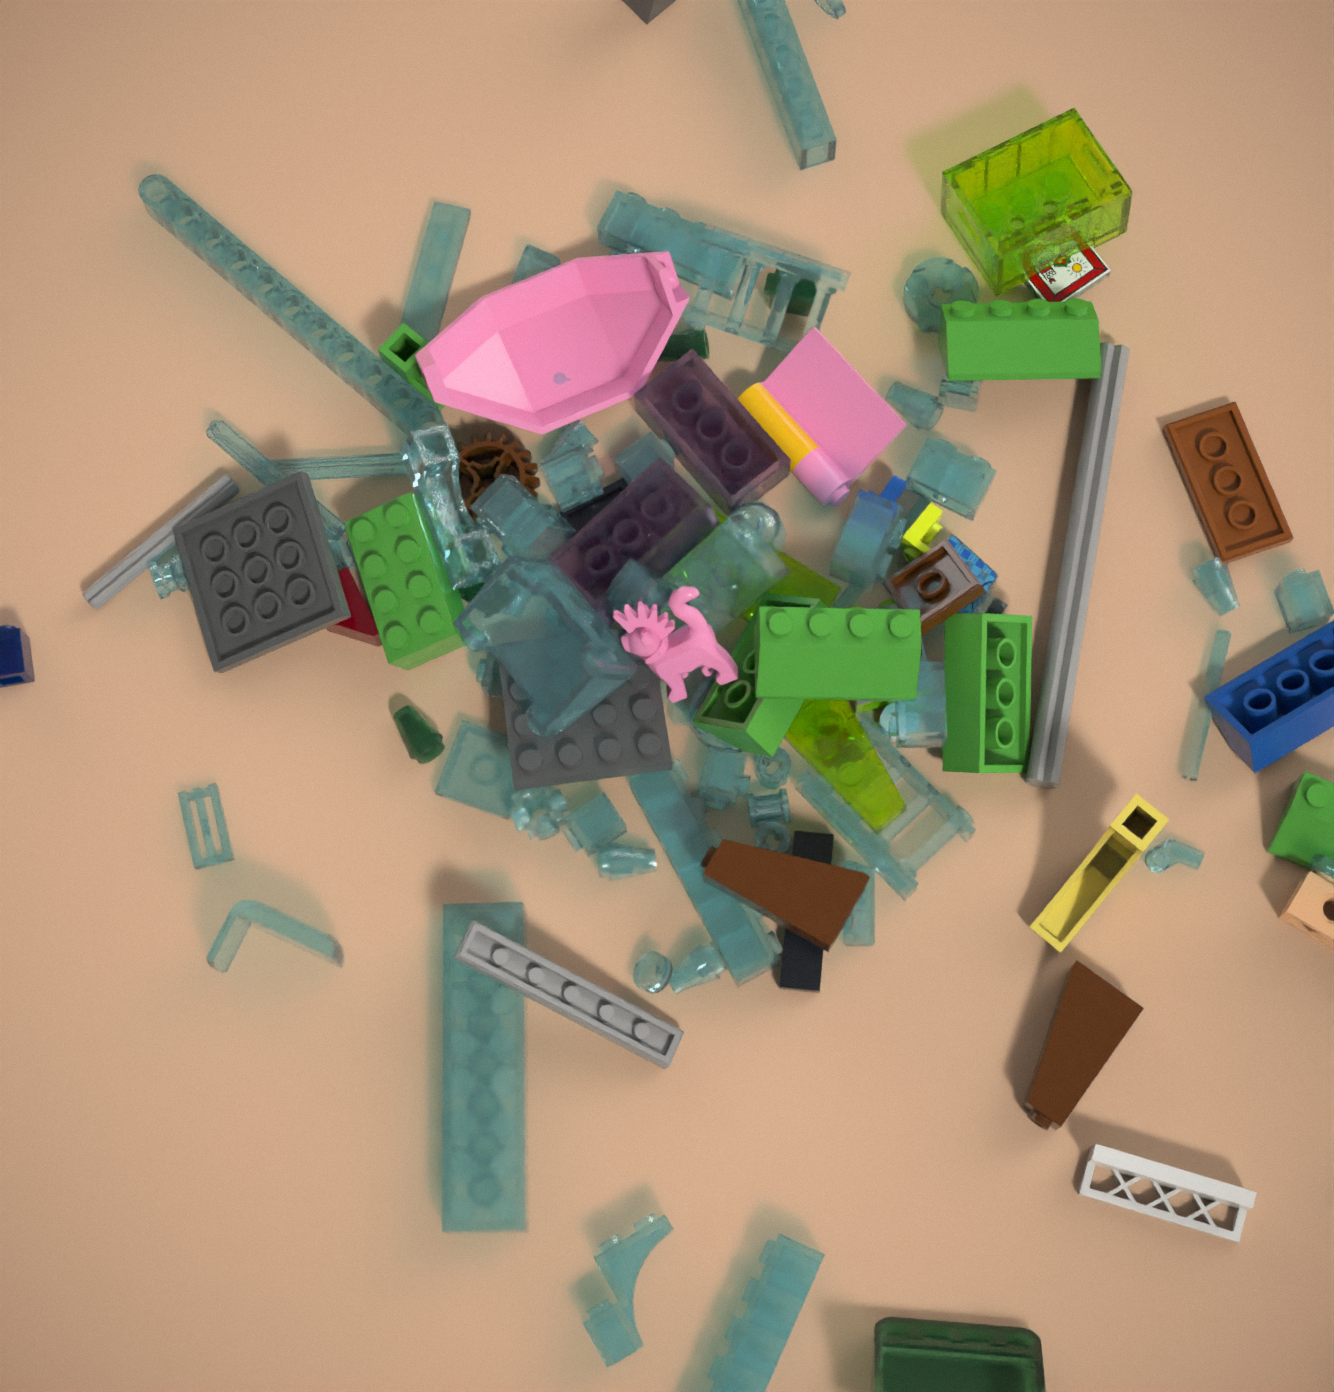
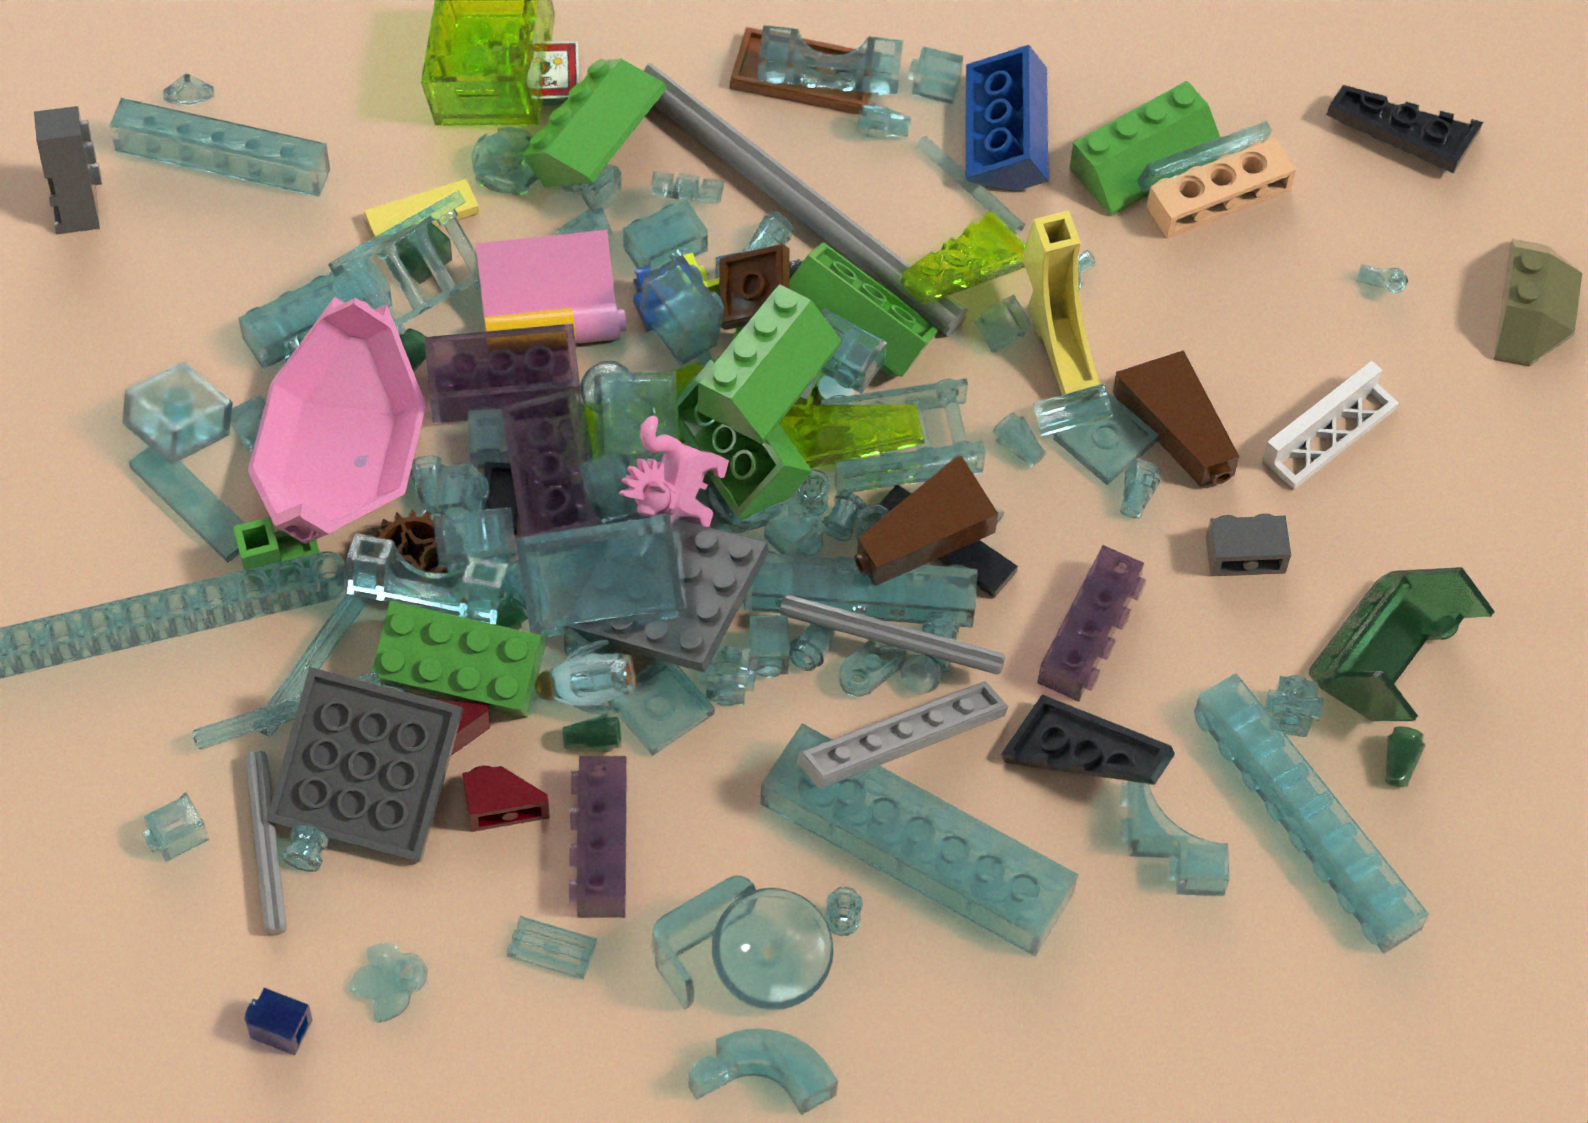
camera: 65 degrees left, 15 degrees down
(95, 714) = (383, 980): none -> clear light blue plate
(124, 464) = (175, 828): none -> clear light blue window
(212, 1072) = (771, 1056): none -> clear light blue arch
(274, 1013) = (791, 929): none -> clear light blue dish
(309, 696) = (501, 798): none -> dark red slope
(325, 801) = (601, 837): none -> clear purple brick
(367, 1042) = (843, 899): none -> clear light blue bush
(458, 700) = (589, 679): none -> clear light blue animal
(493, 206) = (177, 412): none -> clear light blue brick
(636, 925) = (870, 666): none -> clear light blue plate
(664, 1155) = (1082, 743): none -> black wing
(665, 926) = (892, 634): none -> light grey axle
(802, 1091) = (1091, 622): none -> clear purple brick
(818, 1336) = (1294, 704): none -> clear light blue brick
(868, 277) = (392, 213): none -> light yellow tile
(953, 914) = (1019, 439): none -> clear light blue cone
(974, 1052) = (1139, 486): none -> clear light blue cone
(979, 1186) = (1248, 545): none -> dark grey brick
(1011, 461) = (687, 187): none -> clear light blue plate
(1011, 947) = (1072, 409): none -> clear light blue tile
(1014, 989) = (1110, 443): none -> clear light blue tile
(1017, 564) = (771, 231): none -> clear light blue cone
(1068, 825) = (1003, 323): none -> clear light blue panel
(1108, 753) = (975, 257): none -> clear neon green wing
(1262, 539) = (790, 60): none -> clear light blue arch

